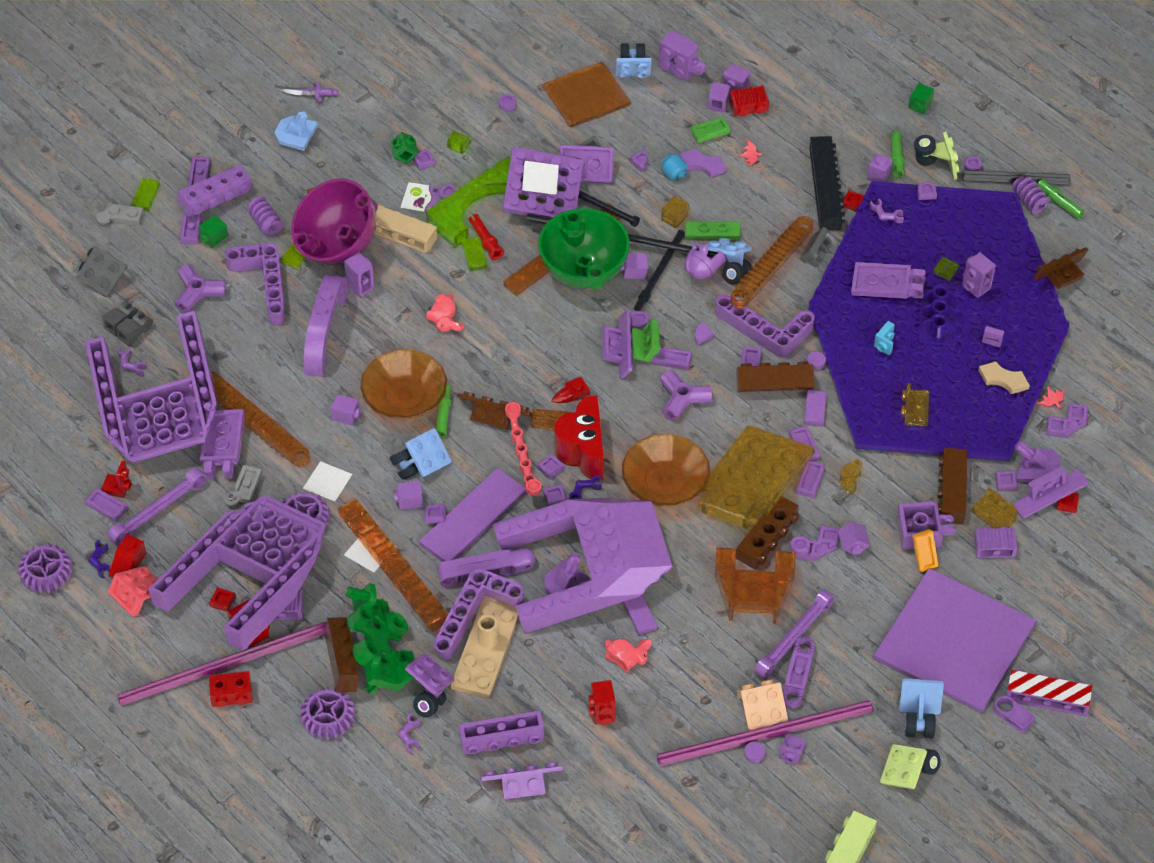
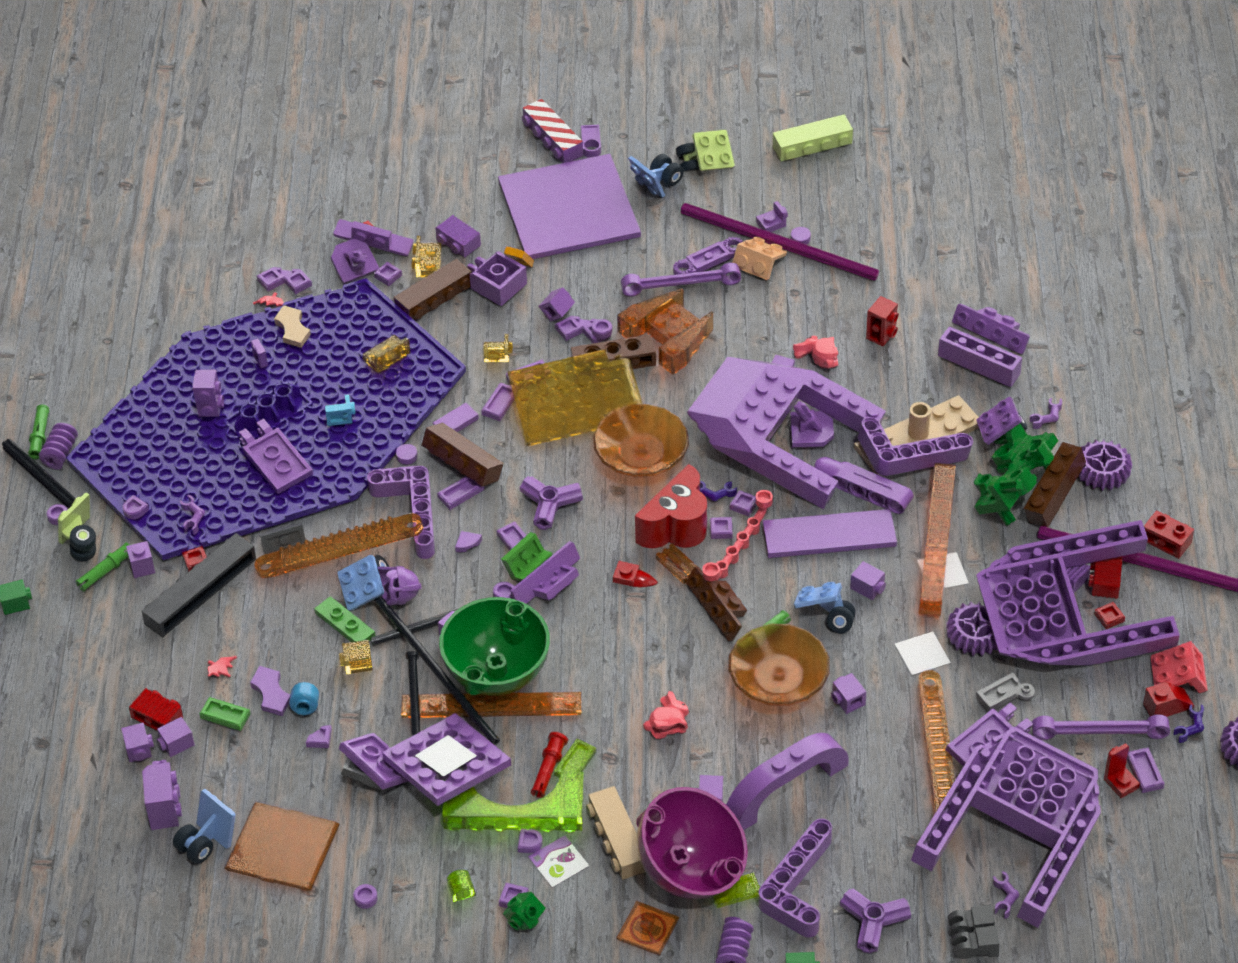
camera: 135 degrees left, 5 degrees down
(435, 513) = (860, 552): medium lavender tile -> none
(946, 268) = (214, 433): clear neon green tile -> none
(1064, 270) = (126, 368): reddish brown bracket -> none

